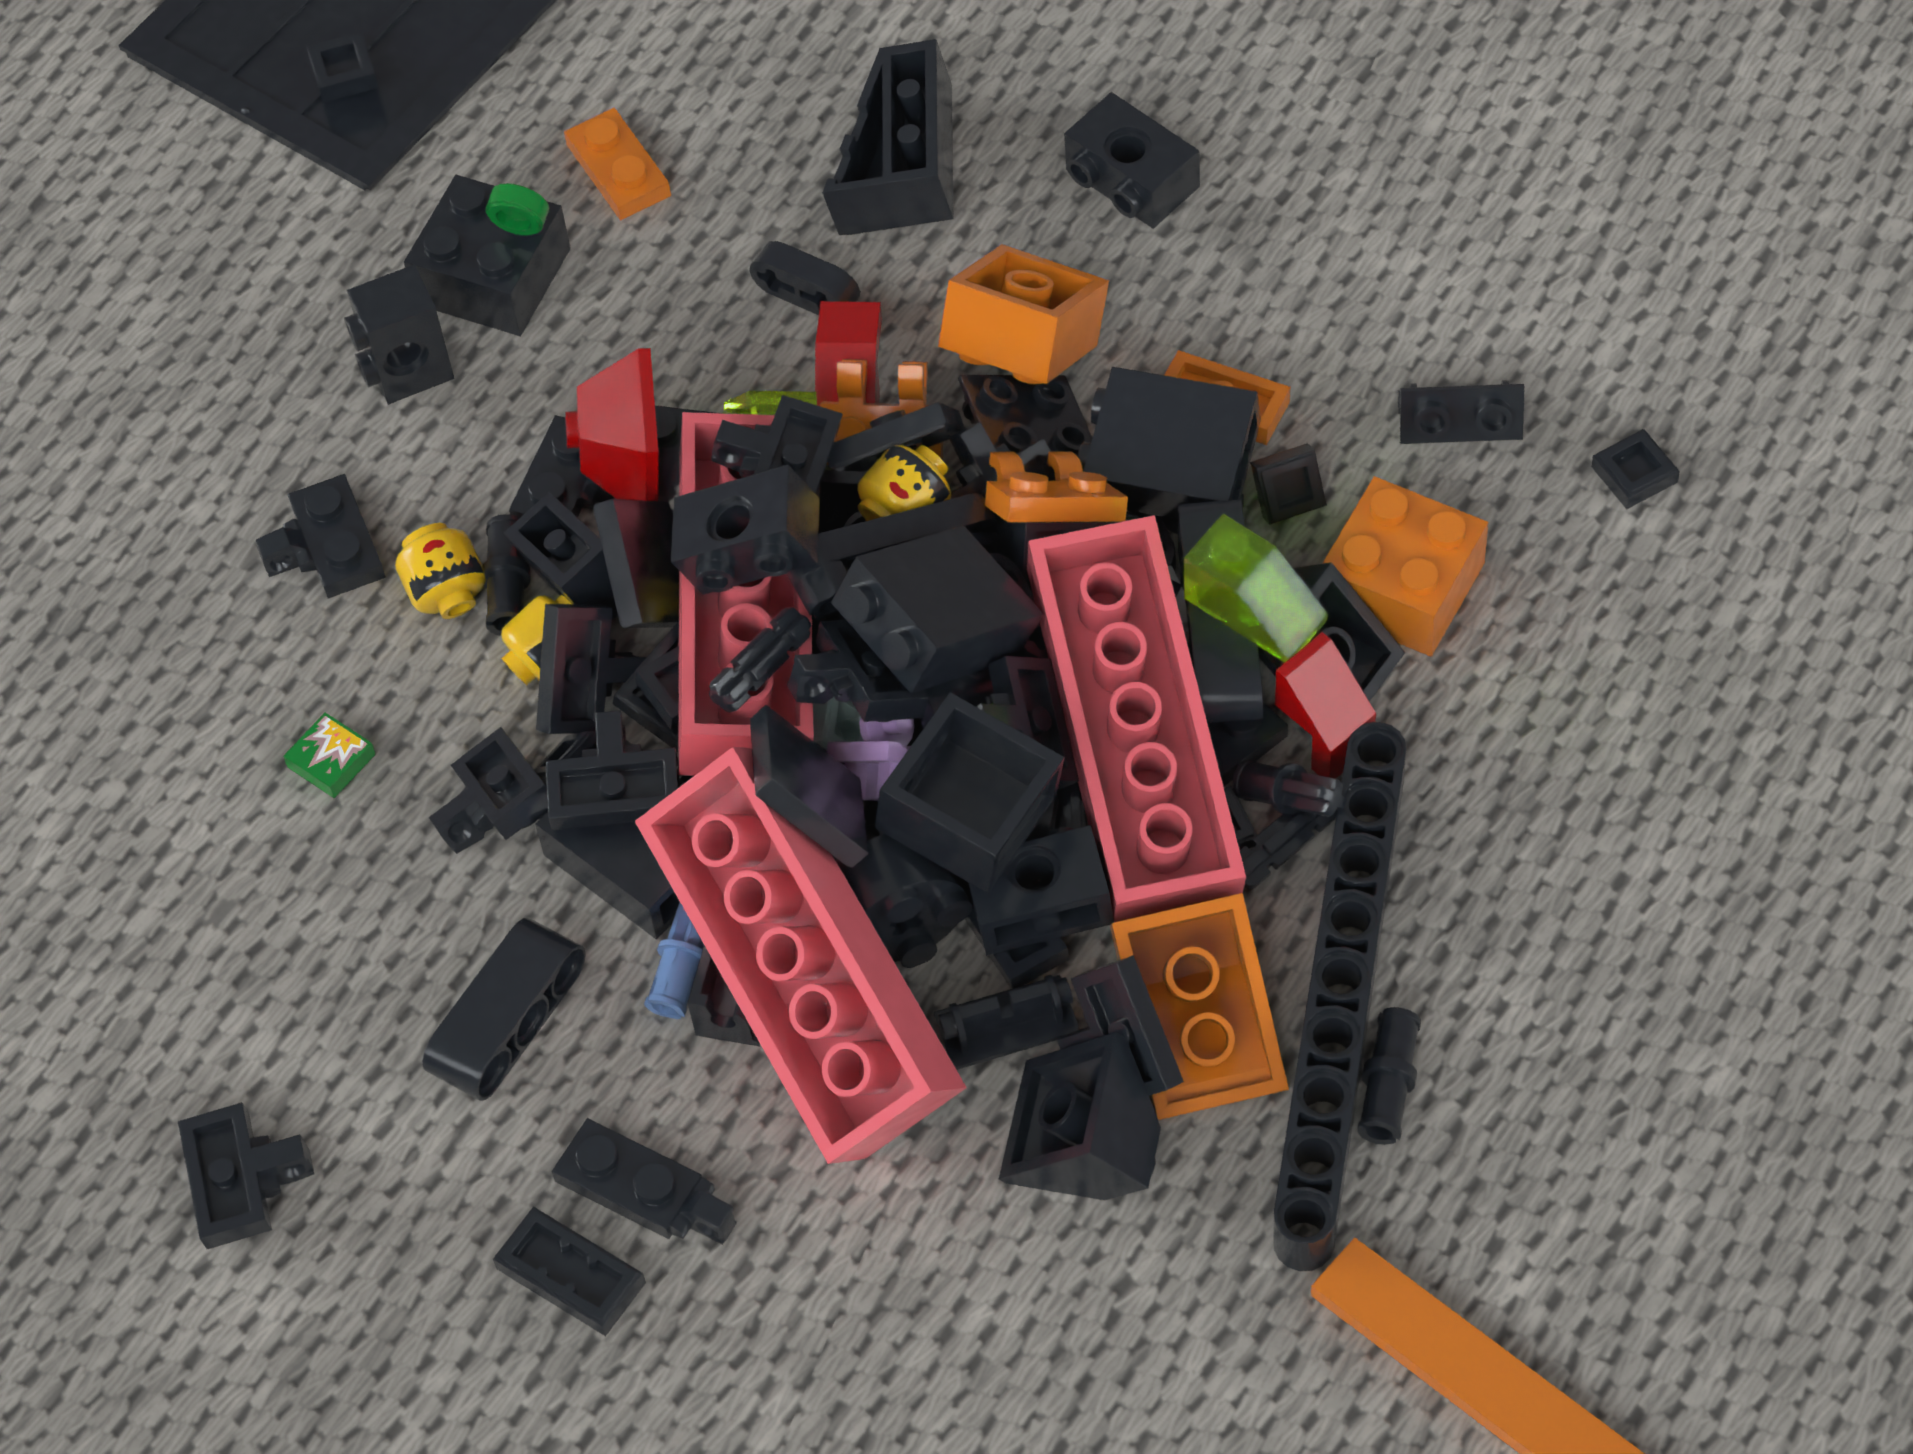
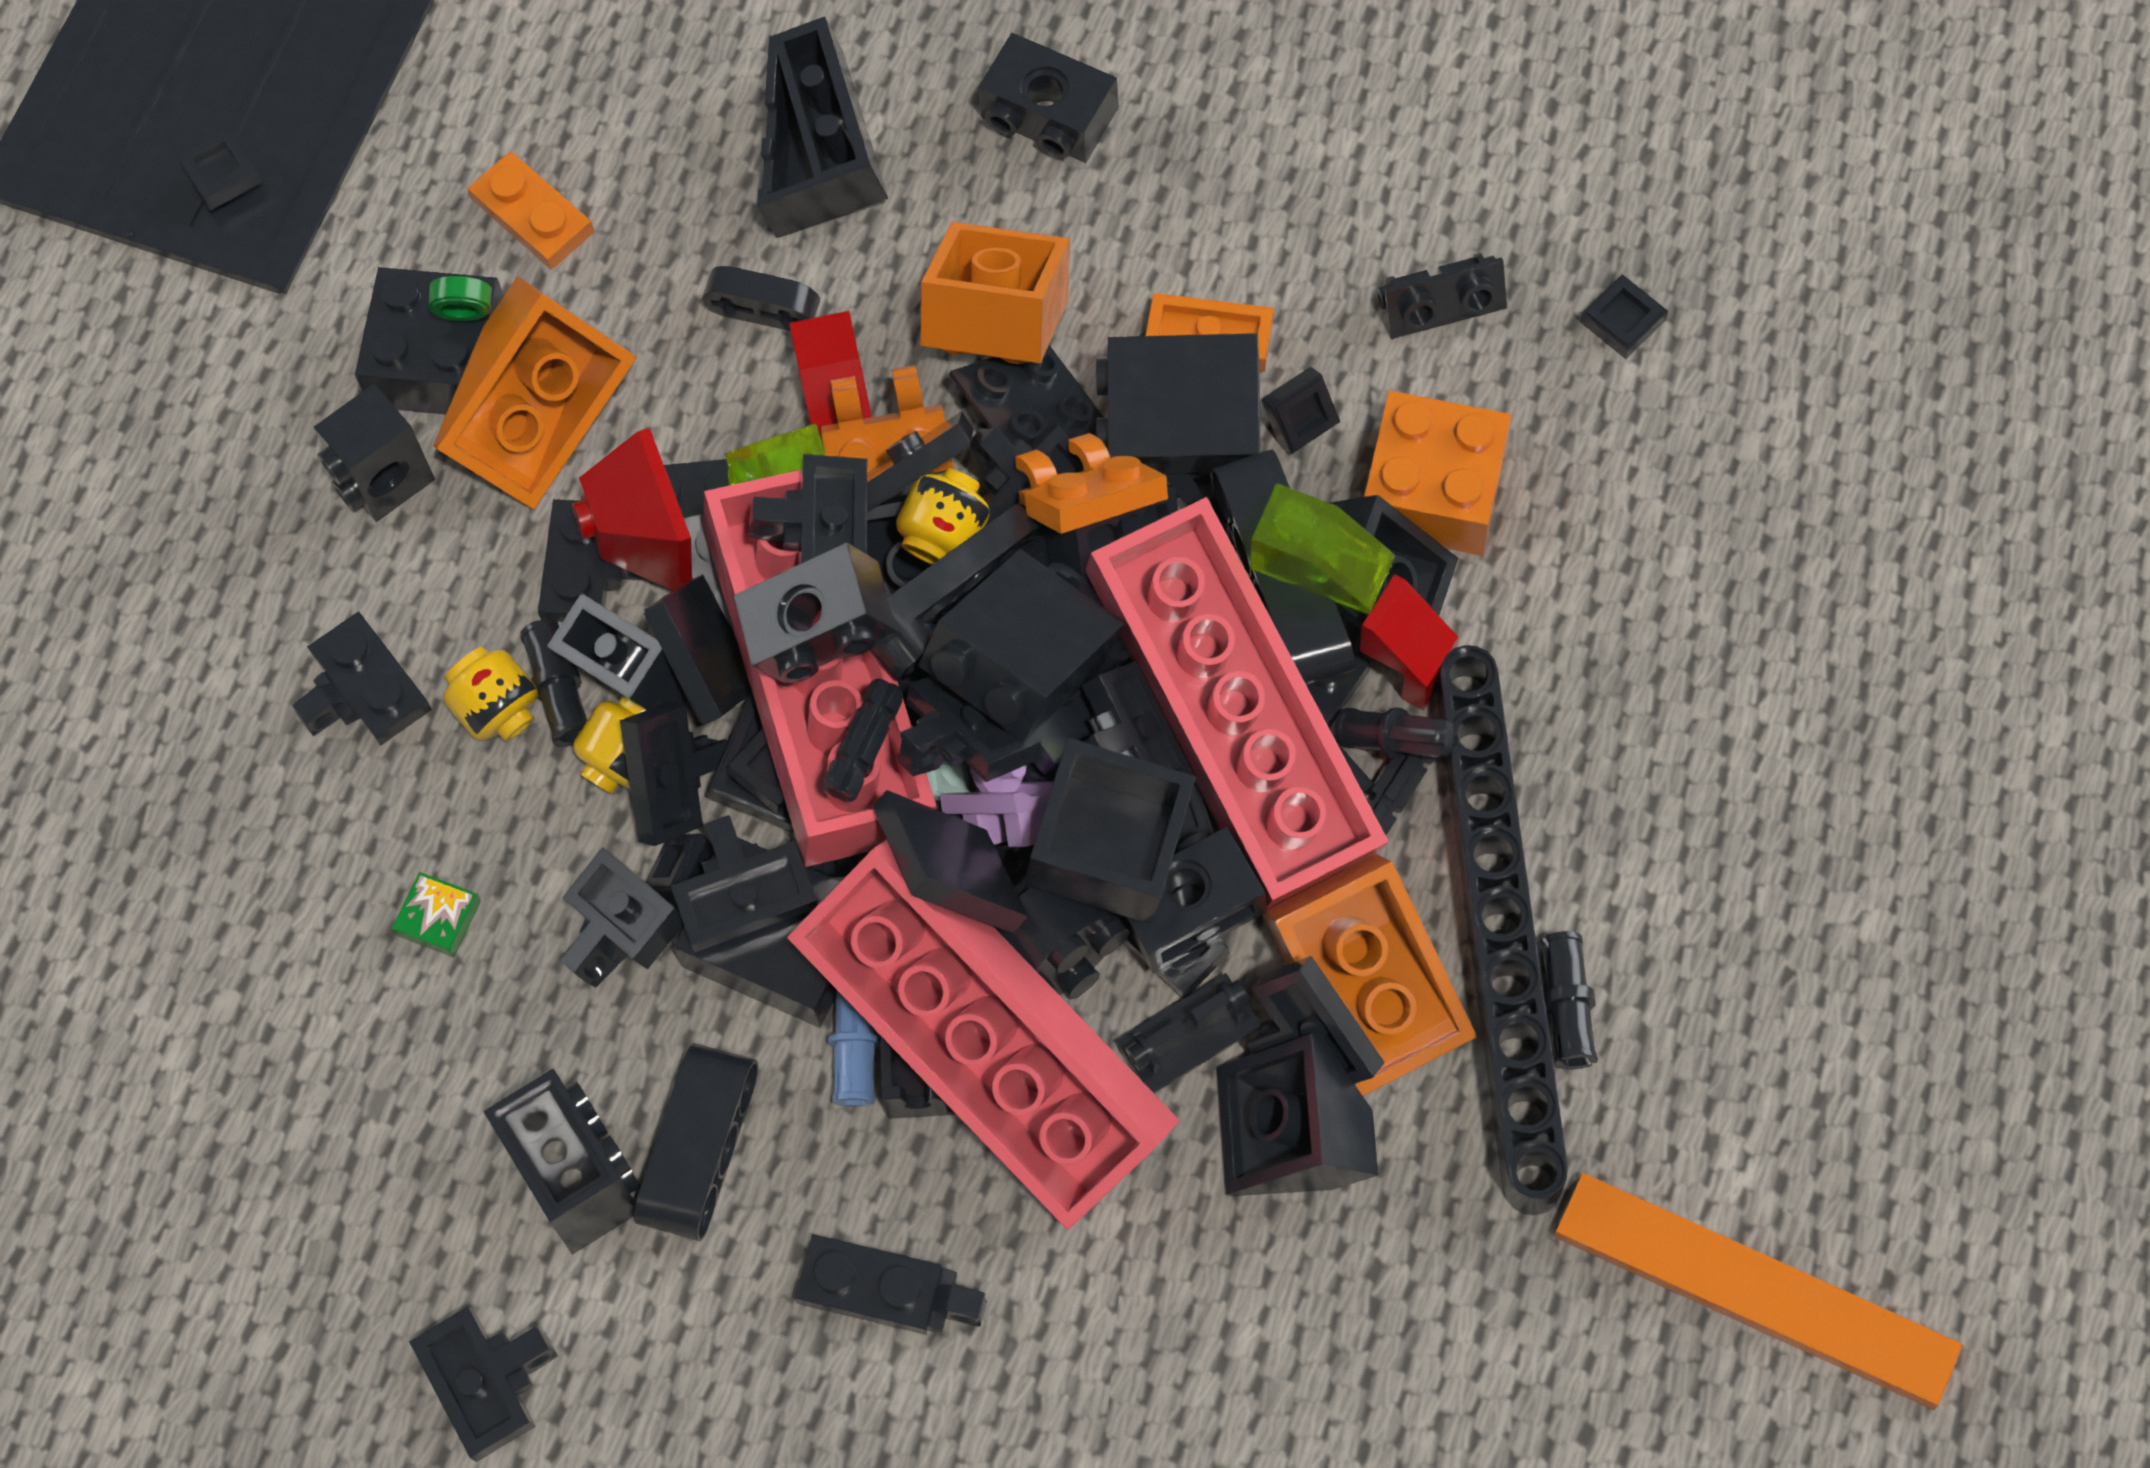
camera: 15 degrees left, 10 degrees up
(362, 946) = (549, 1113): none -> black piece
(559, 313) = (530, 393): none -> orange slope
(569, 1271) = (842, 1396): black plate -> none

